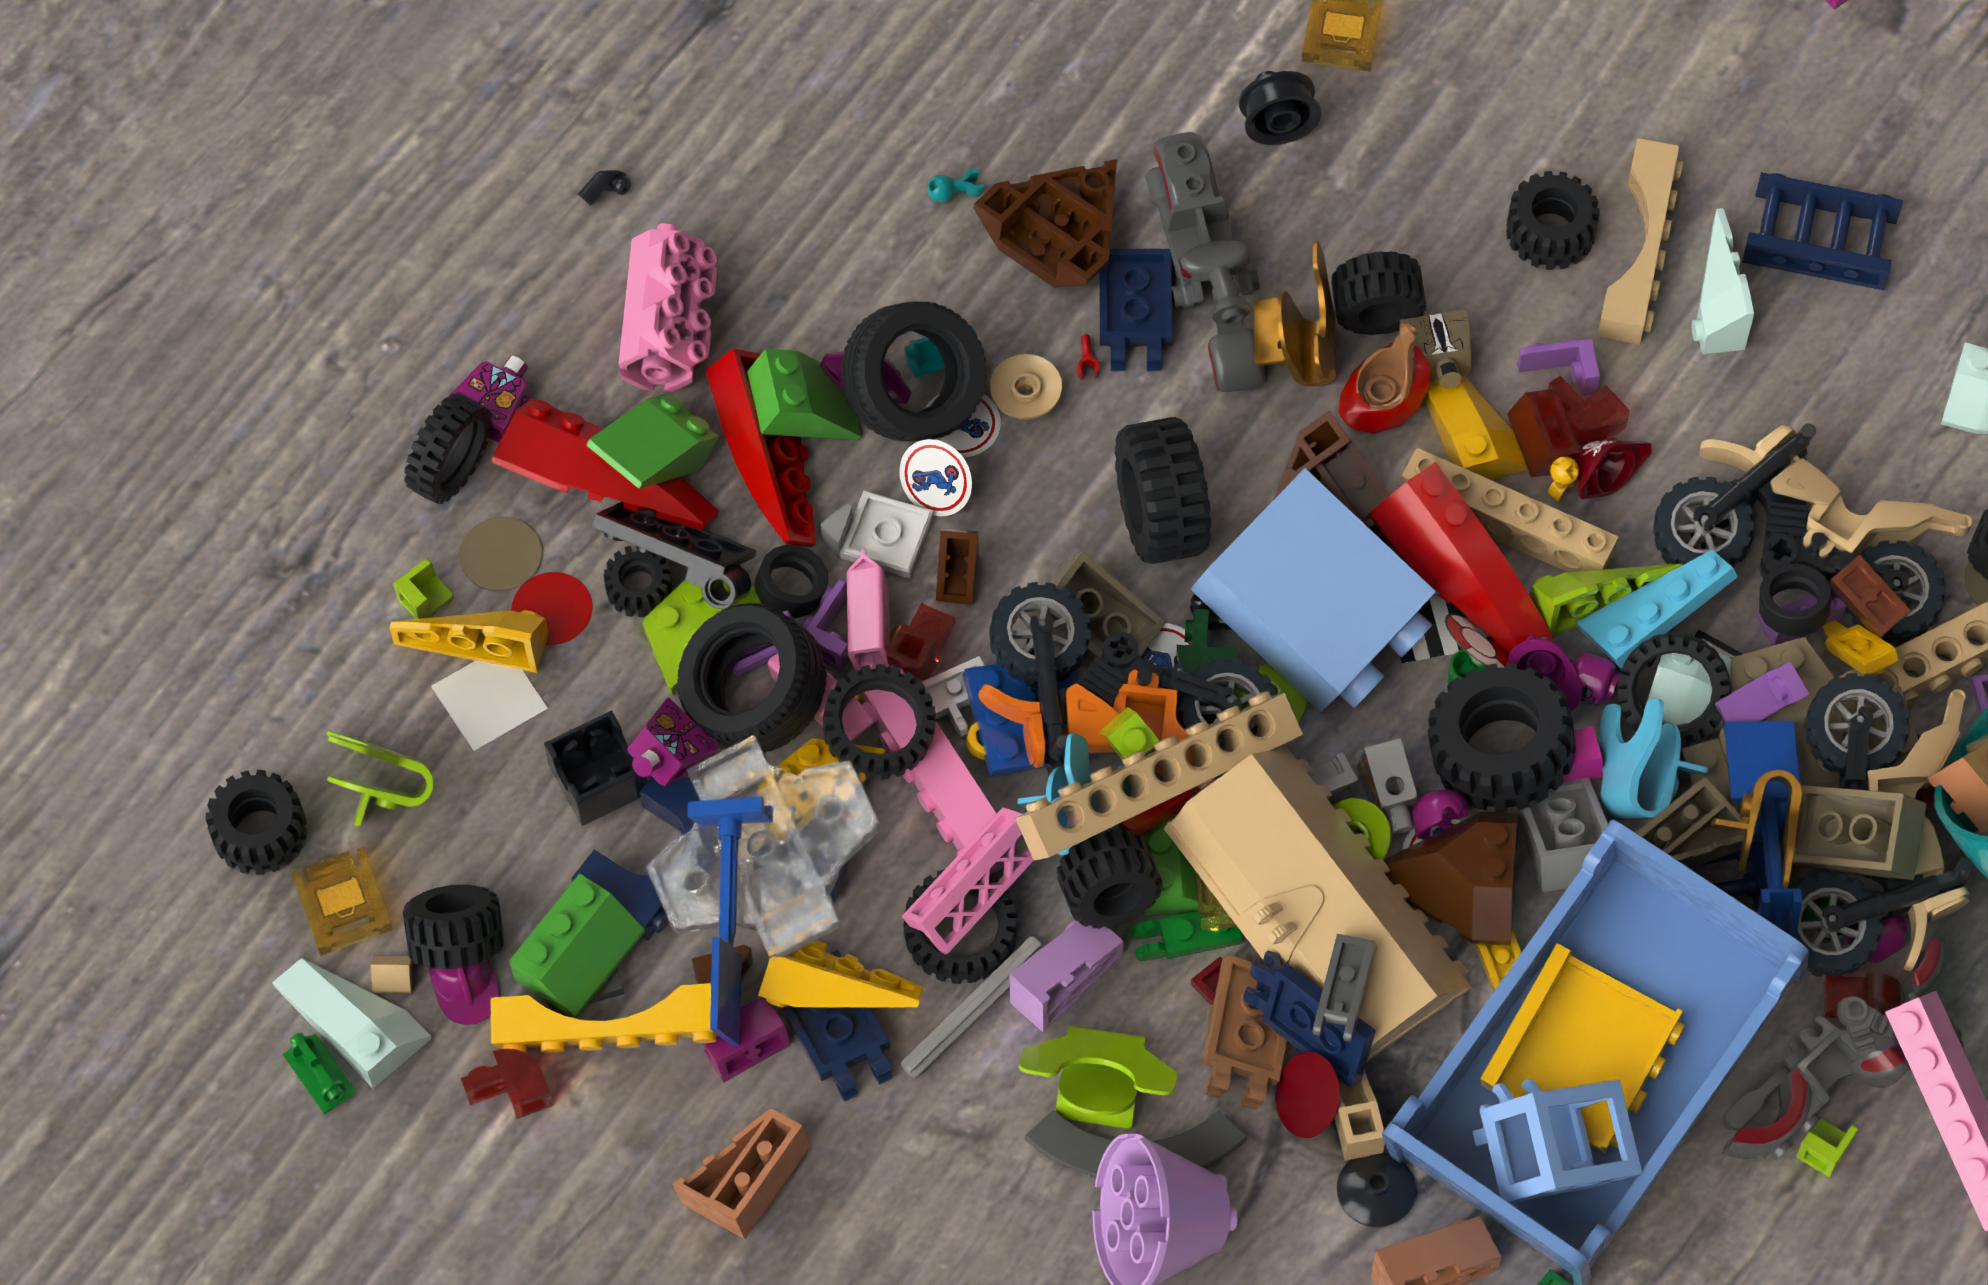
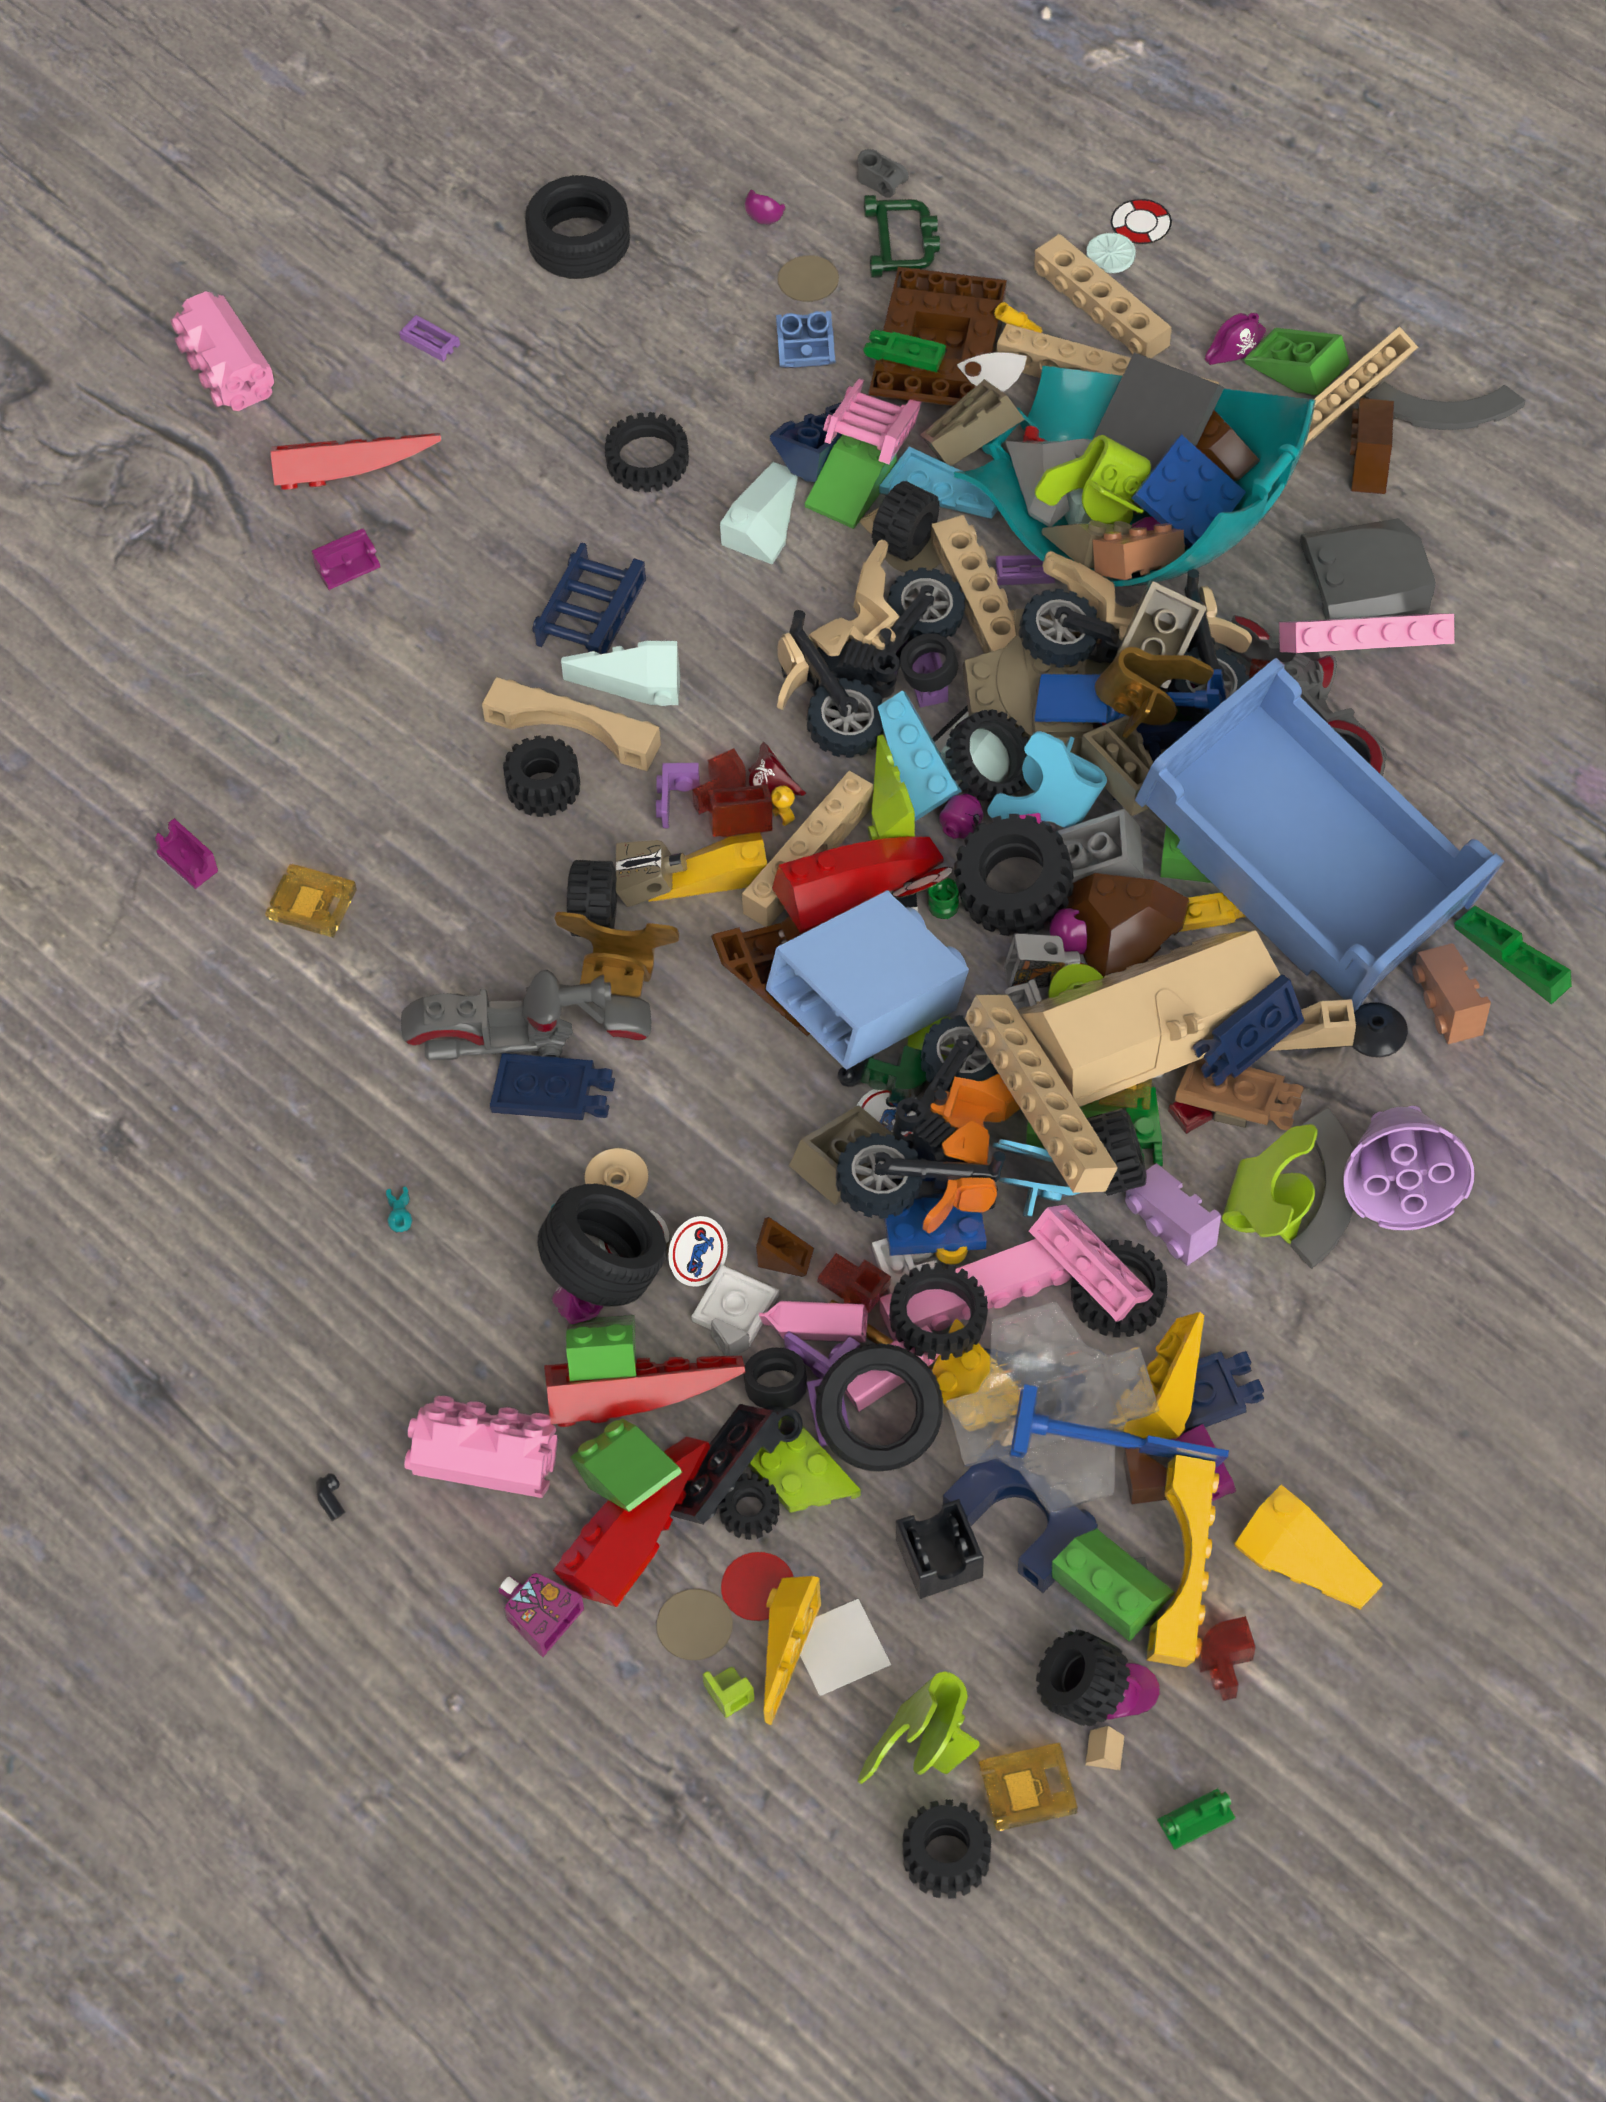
camera: 80 degrees left, 5 degrees down
(355, 1022) = (1152, 1781): light aqua wedge -> none
(448, 448) = (600, 1638): black tyre -> none
(653, 1153) = (1298, 1544): none -> yellow wedge
(670, 745) = (935, 1478): magenta torso -> none
(746, 1174) = (1333, 1470): nougat wedge -> none
(967, 1011) = (1194, 1292): light grey axle -> none
(1054, 222) = (467, 1127): reddish brown wedge -> none
(1087, 359) = (597, 1132): red hand -> none
(1129, 734) = (993, 1114): lime brick -> none
(1162, 490) = (758, 1069): black tyre -> none
(1279, 107) = (390, 946): black wheel -> none
(1307, 1095) = (1303, 1054): dark red sticker -> none
(1345, 984) = (1247, 984): dark grey hinge -> none
(1386, 386) = (673, 902): hat -> none
(1543, 1143) = (1378, 885): light blue piece -> none
(1551, 661) = (948, 837): magenta piece -> none
(1583, 1032) = (1306, 847): yellow panel -> none
(1763, 695) = (1011, 687): medium lavender bracket -> none
(1826, 1146) = (1378, 724): lime panel -> none
(1859, 648) = (976, 631): yellow hinge -> none
(1868, 597) = (943, 609): copper hinge -> none

